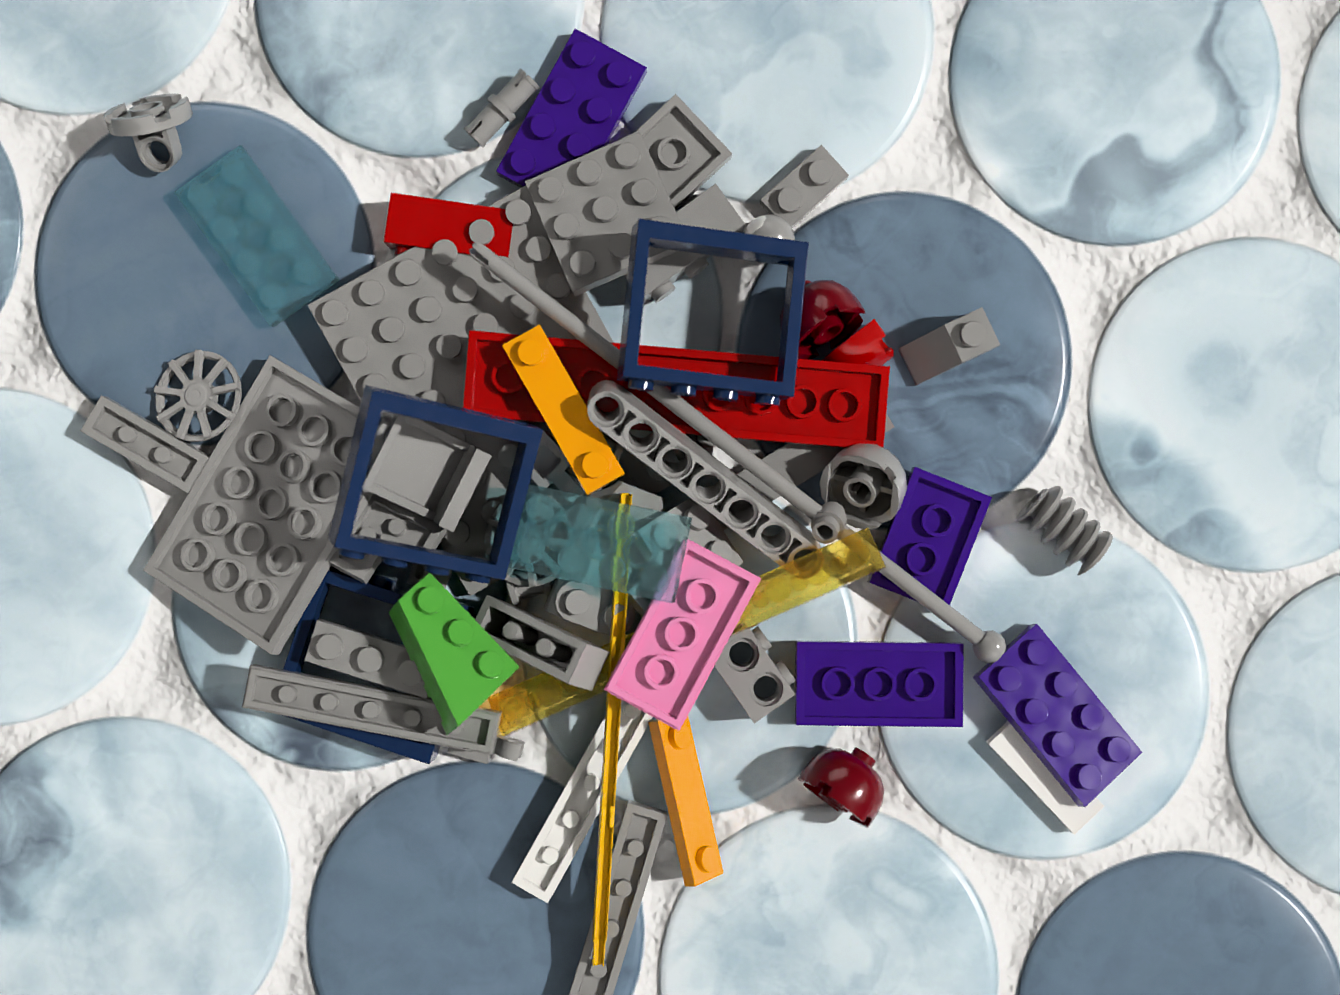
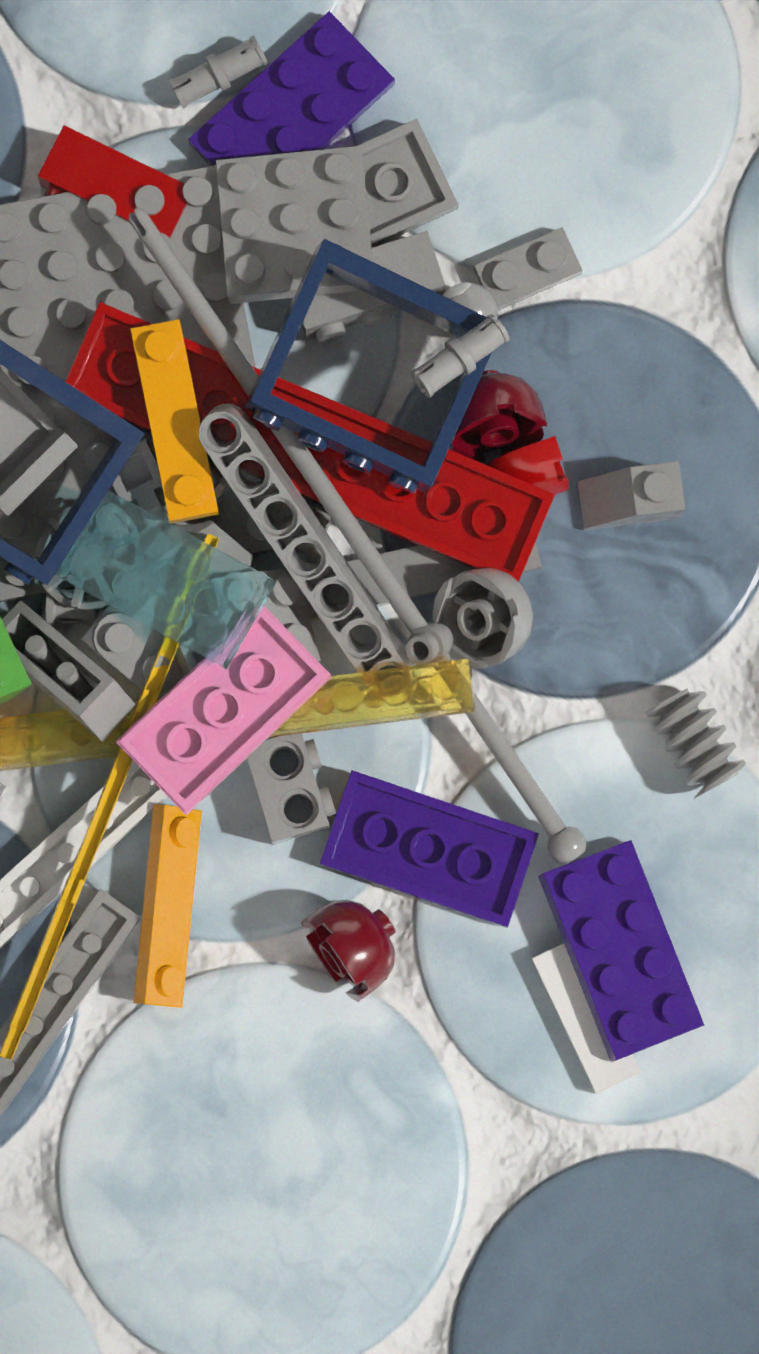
camera: 15 degrees right, 5 degrees down
(783, 280) = (460, 355): none -> light grey pin
(933, 533) = (545, 699): dark purple plate -> none

